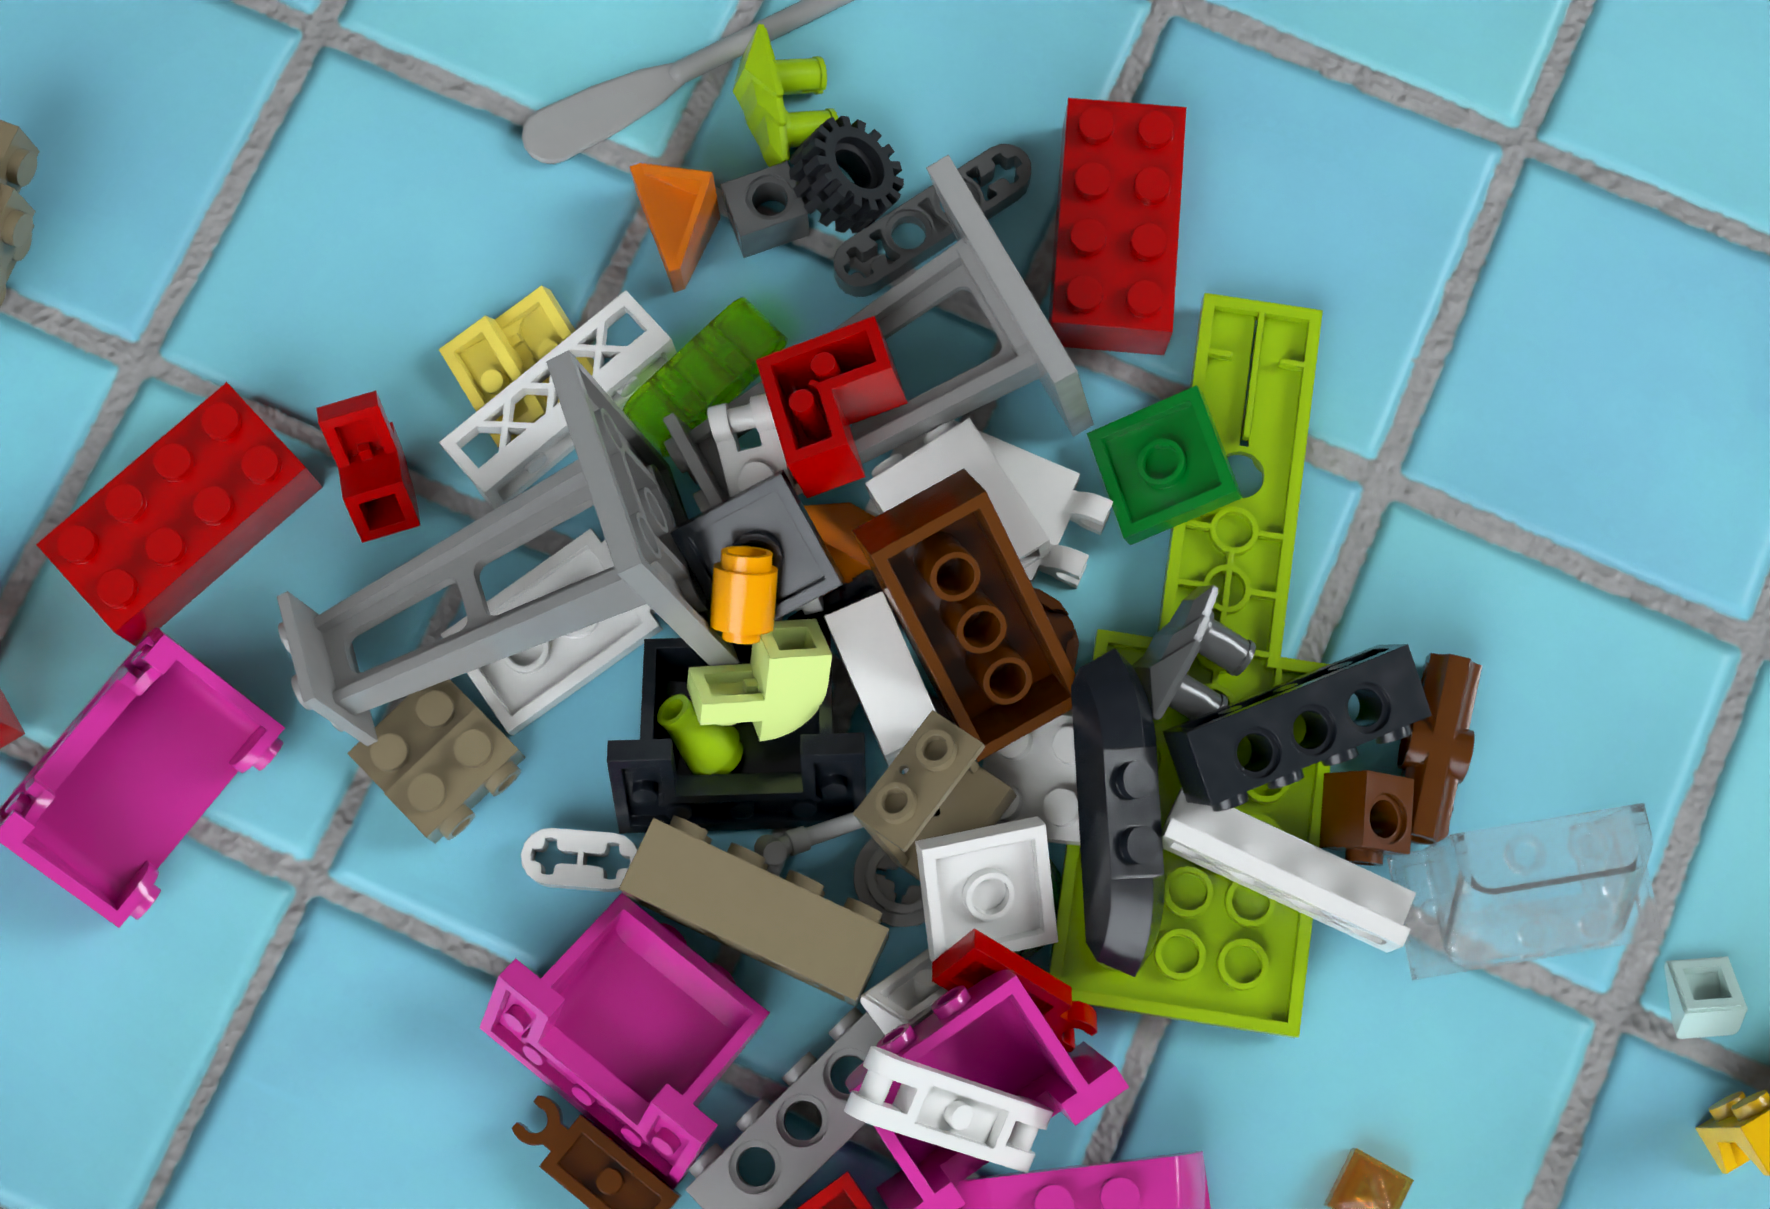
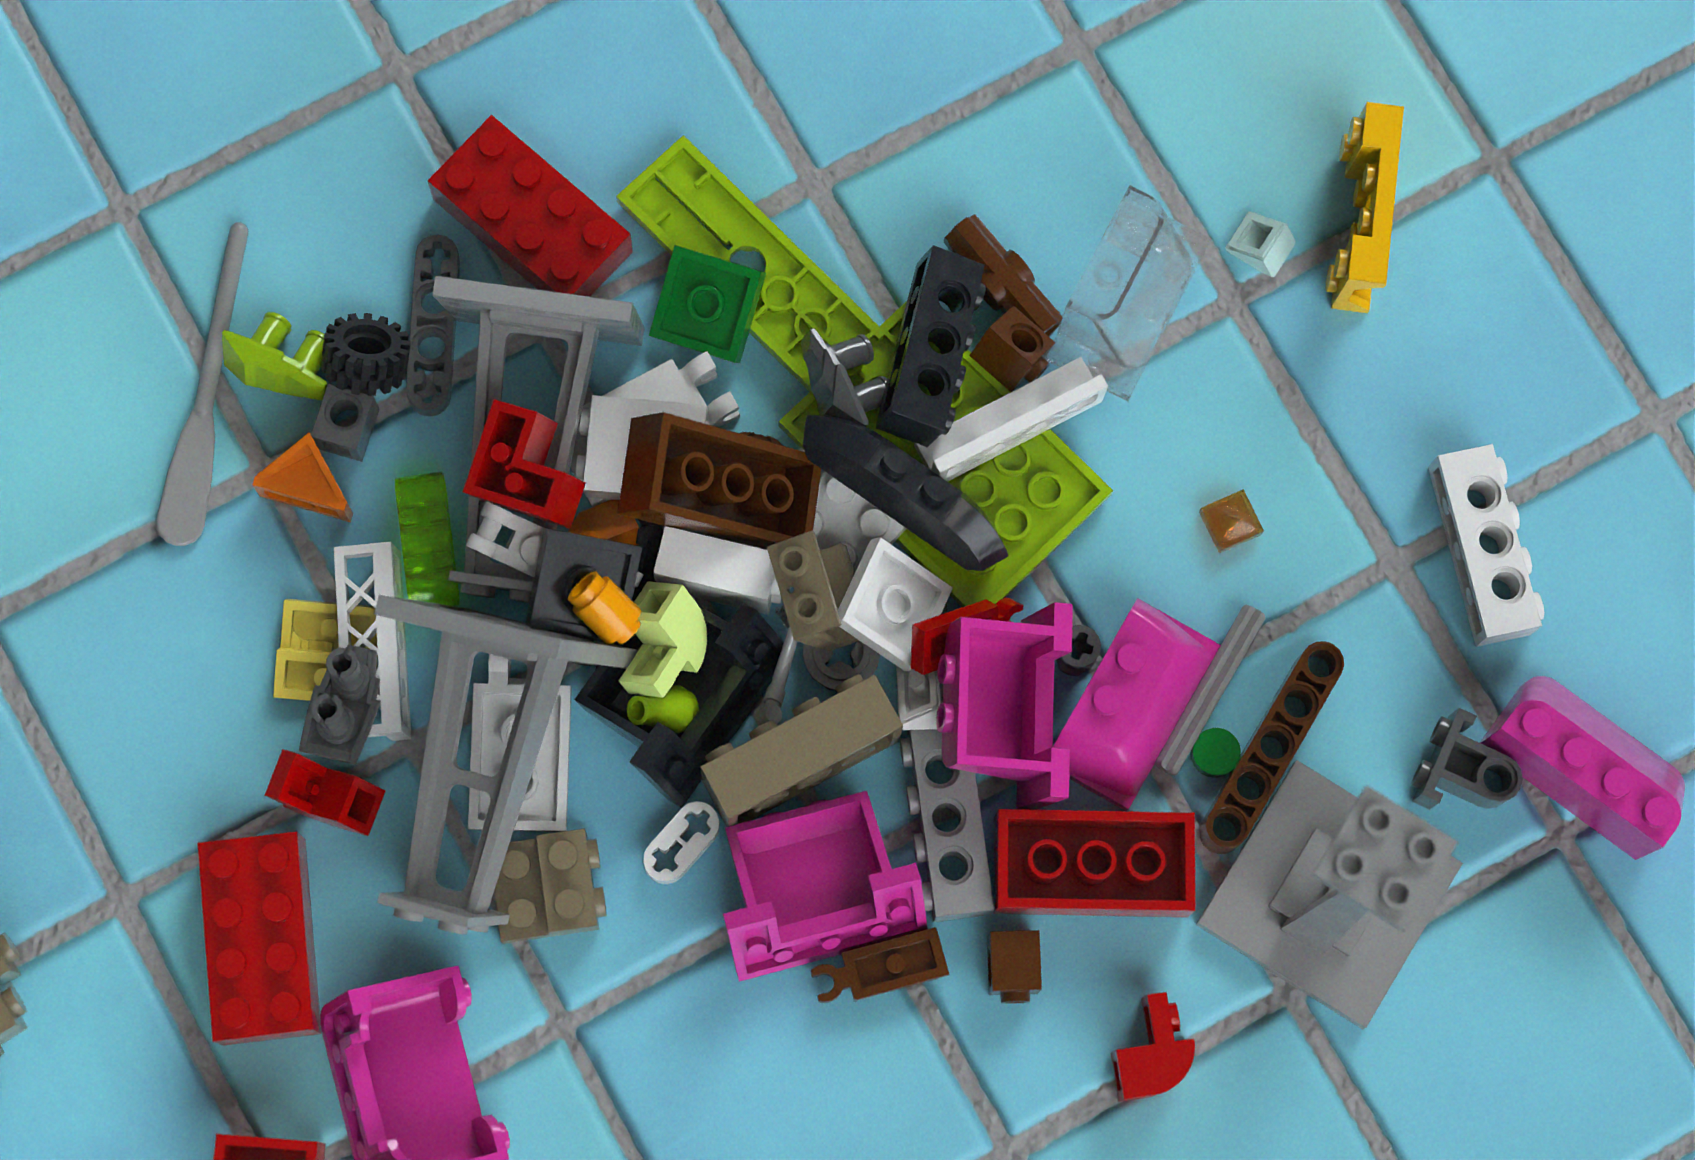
camera: 60 degrees left, 0 degrees up
(464, 415) = (342, 706): none -> dark grey connector
(948, 1110) = (1009, 716): white plate -> none
(1110, 1138) = (1091, 650): none -> dark grey bush

